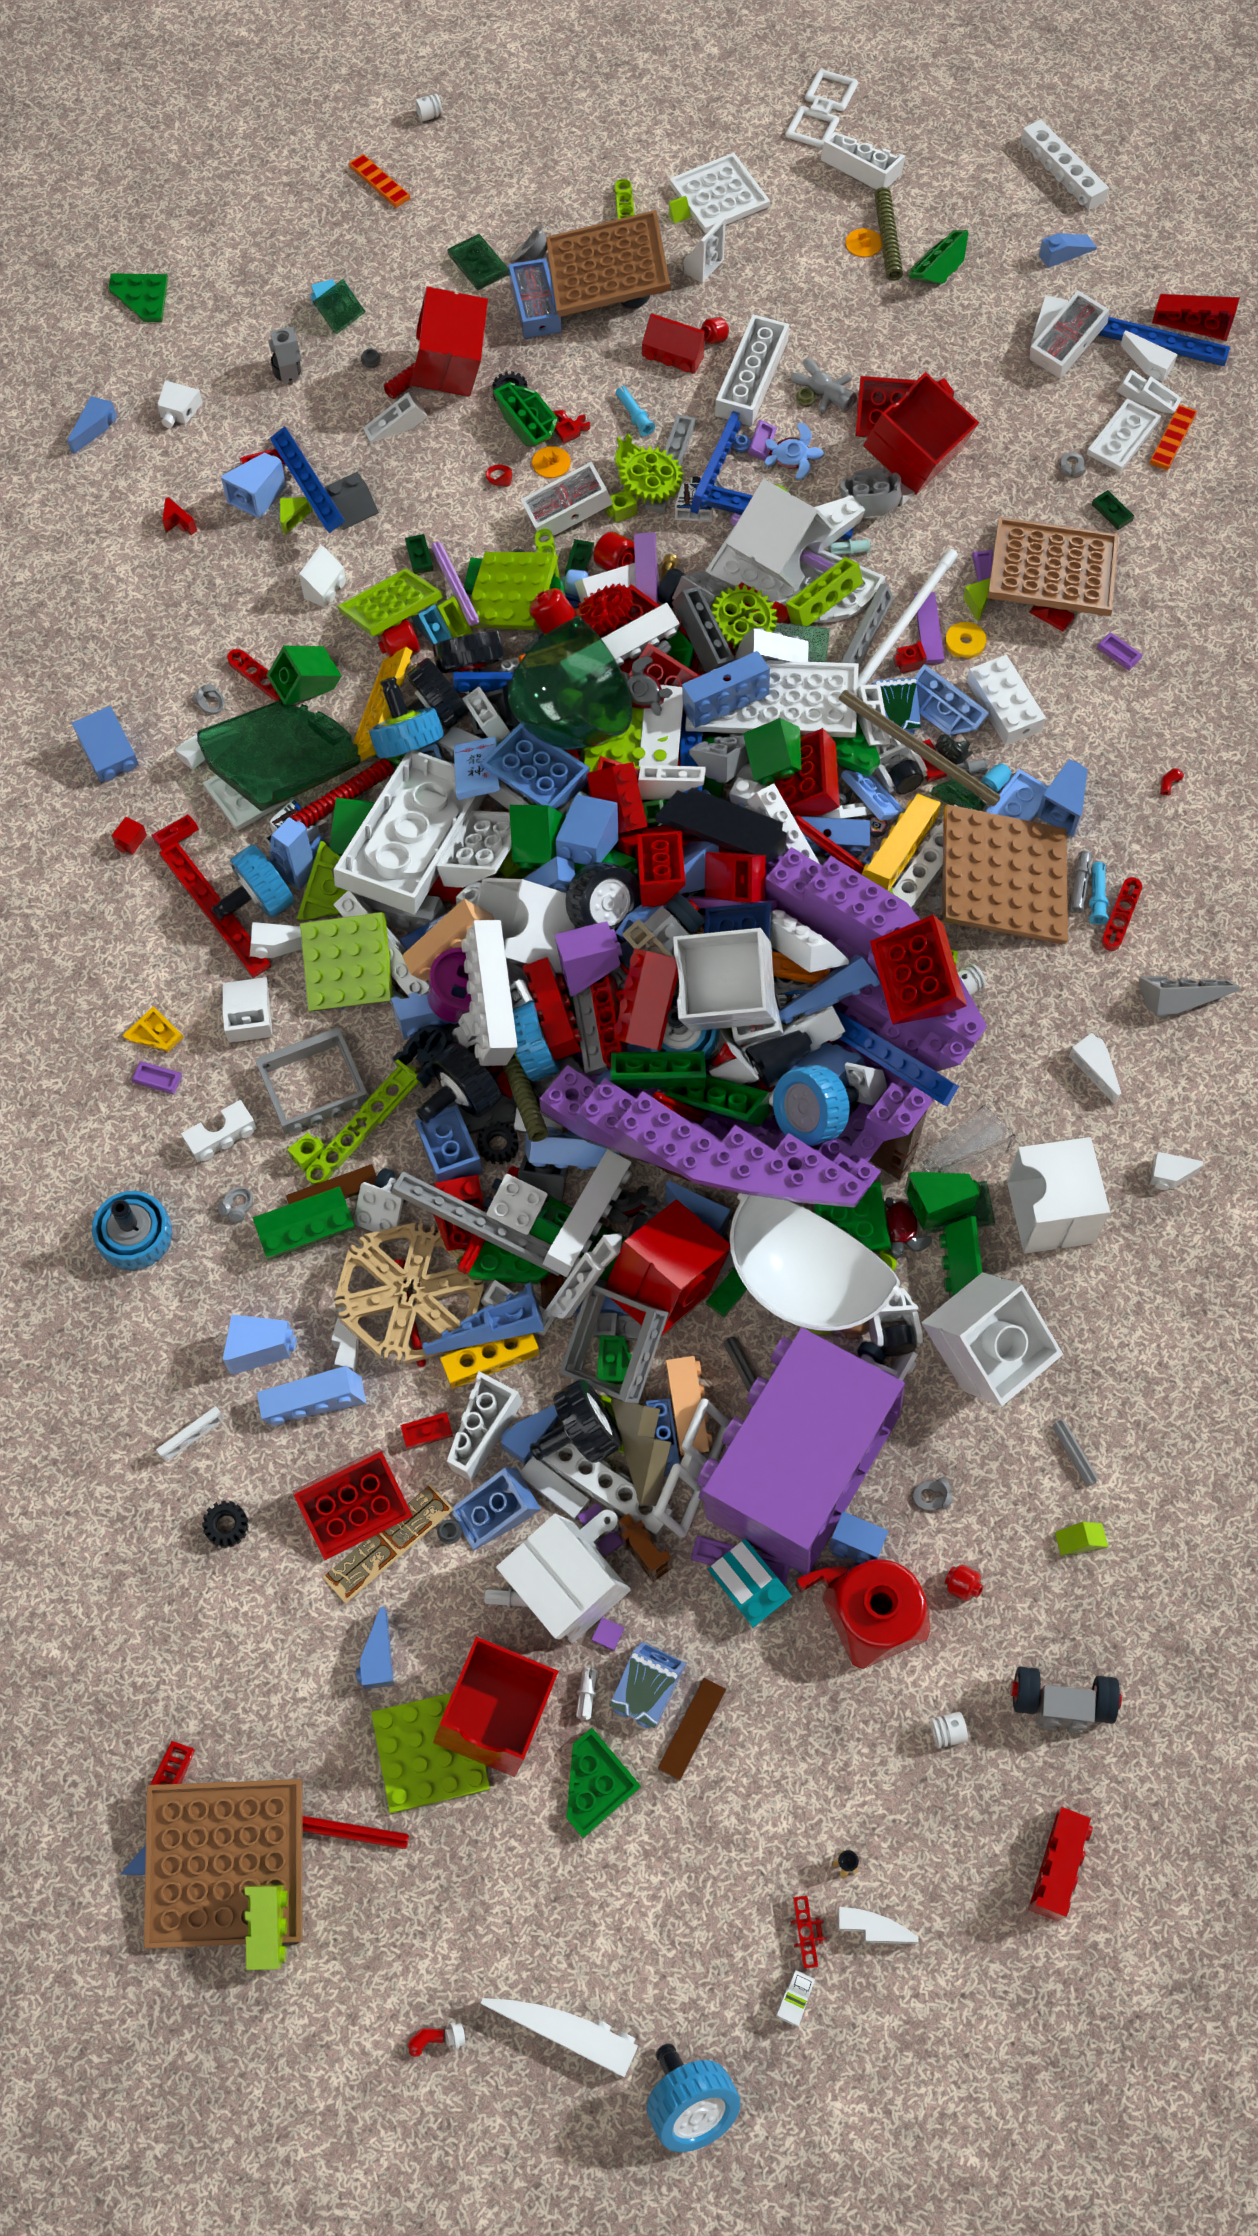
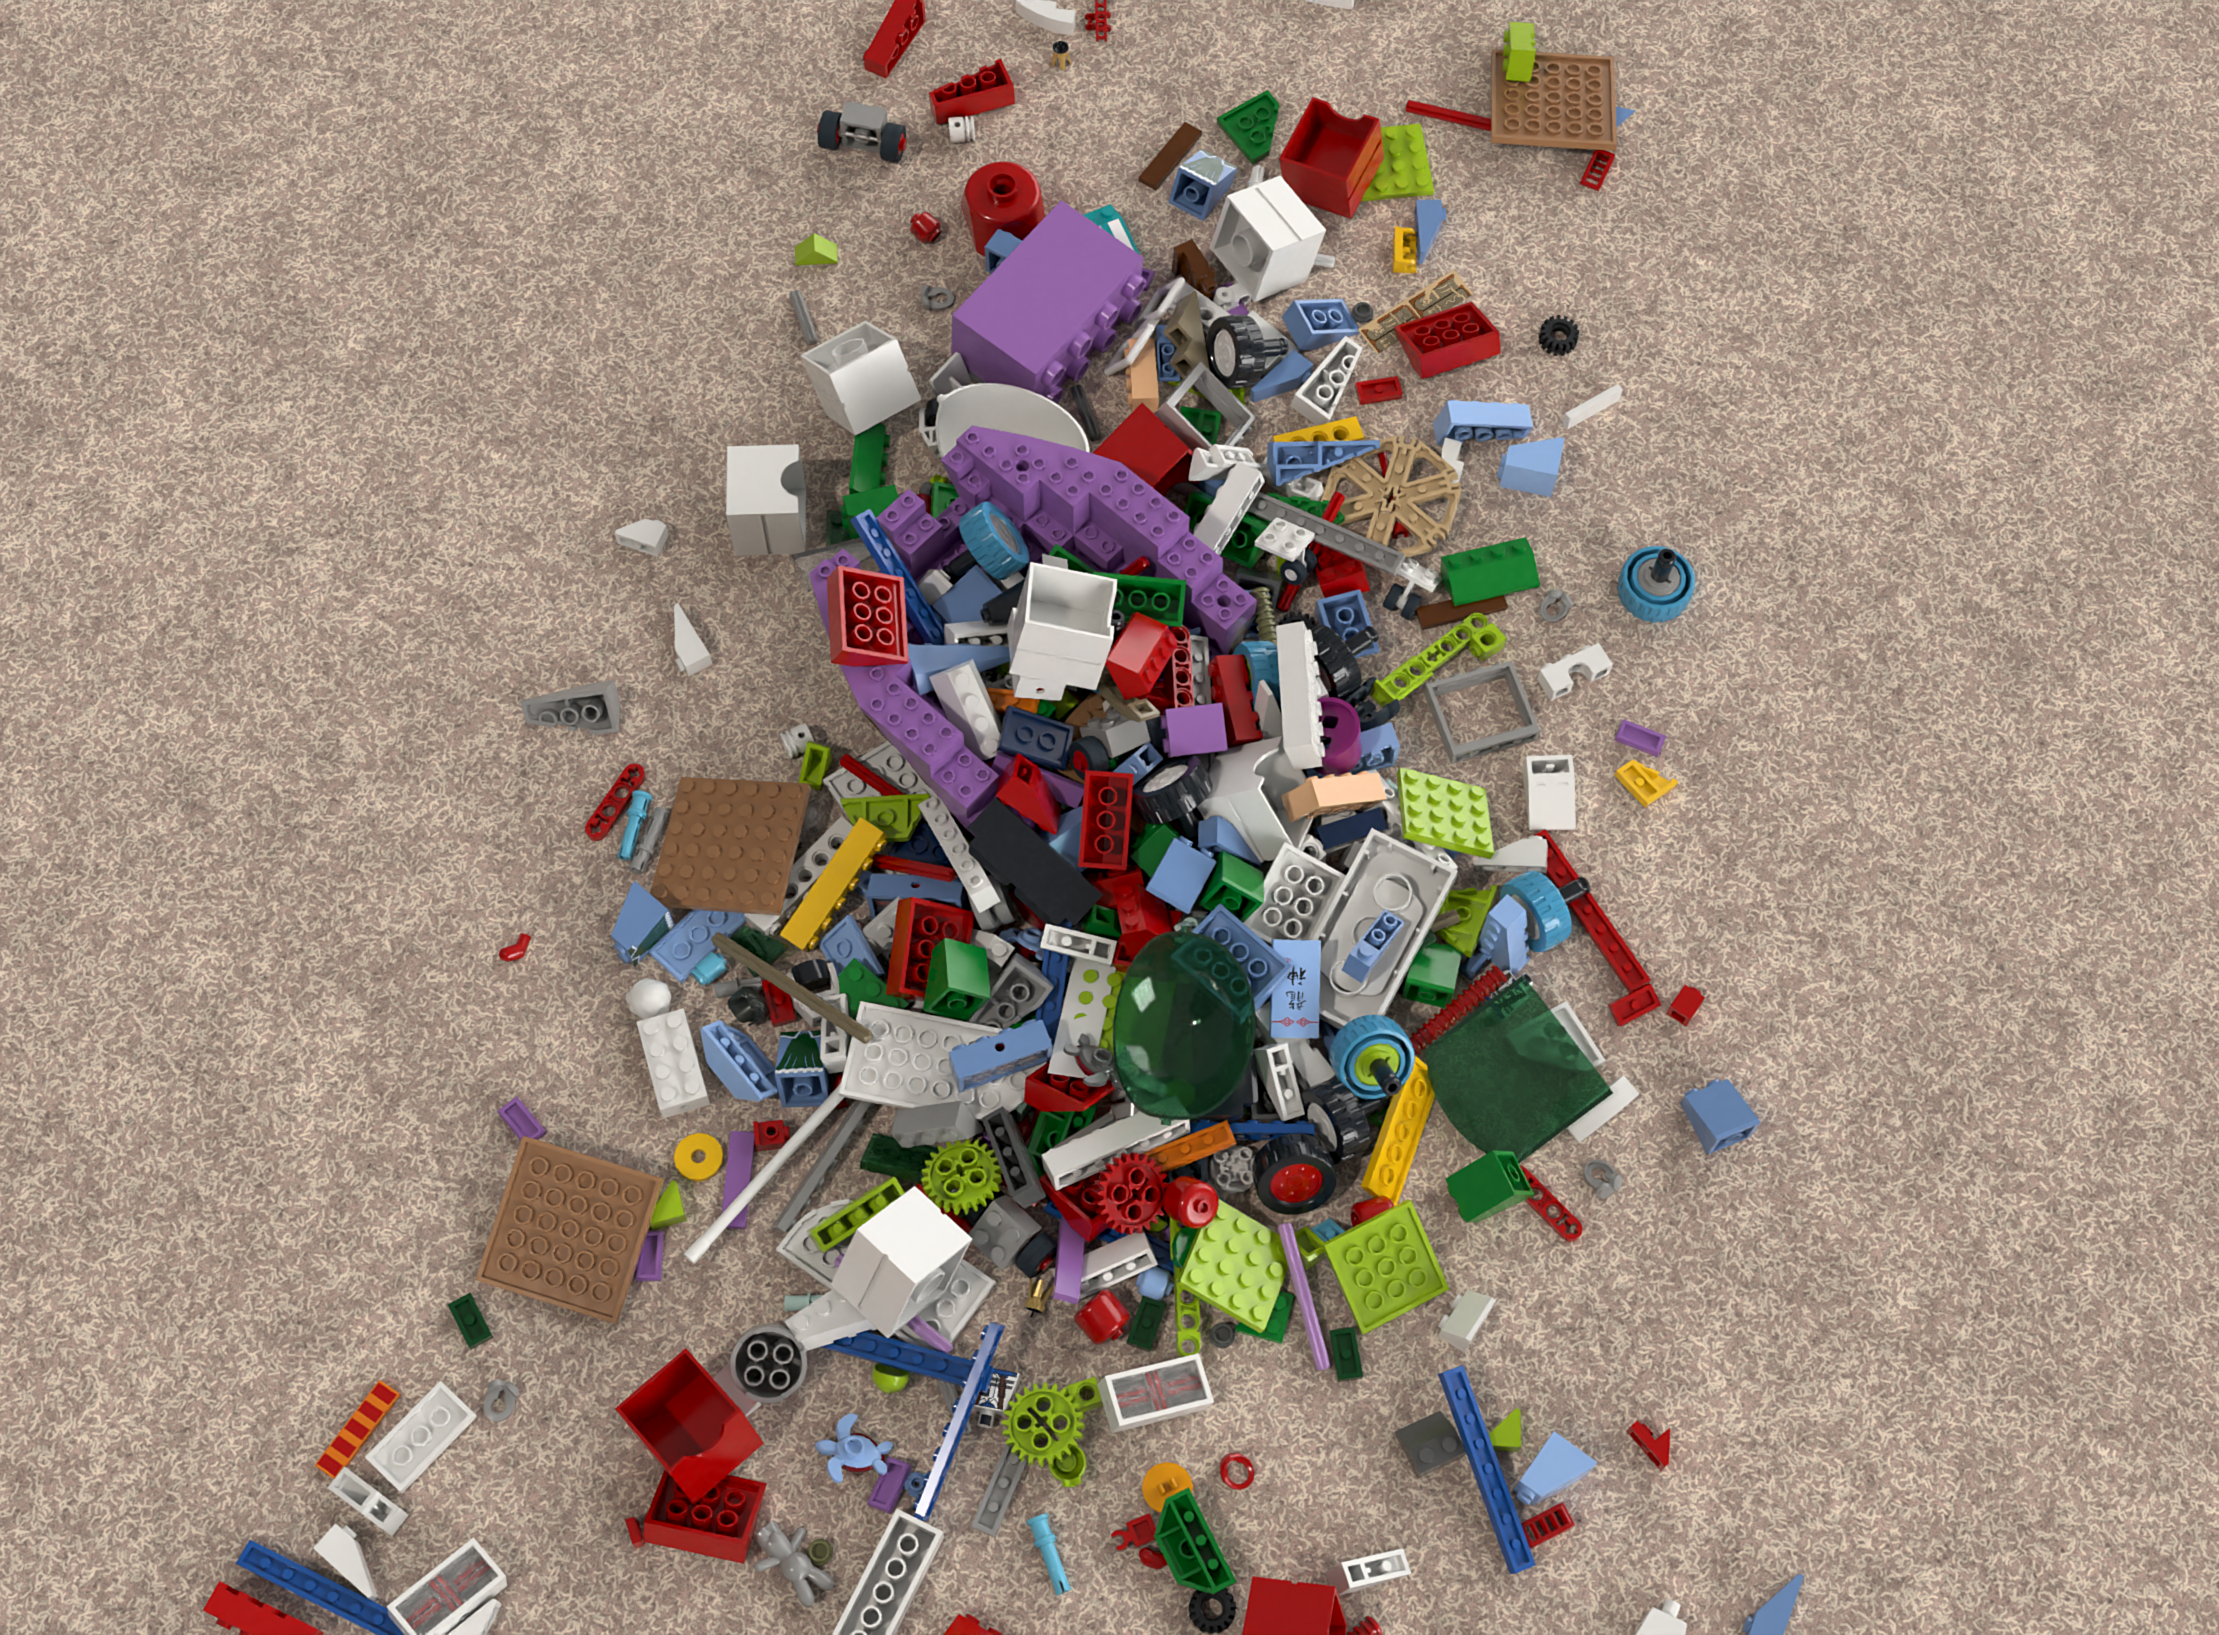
camera: 175 degrees left, 0 degrees up
(403, 1619) = (1404, 250): none -> yellow hinge
(409, 803) = (1372, 946): none -> medium blue slope
(941, 1784) = (973, 94): none -> red wedge
(1041, 748) = (649, 998): none -> white hair

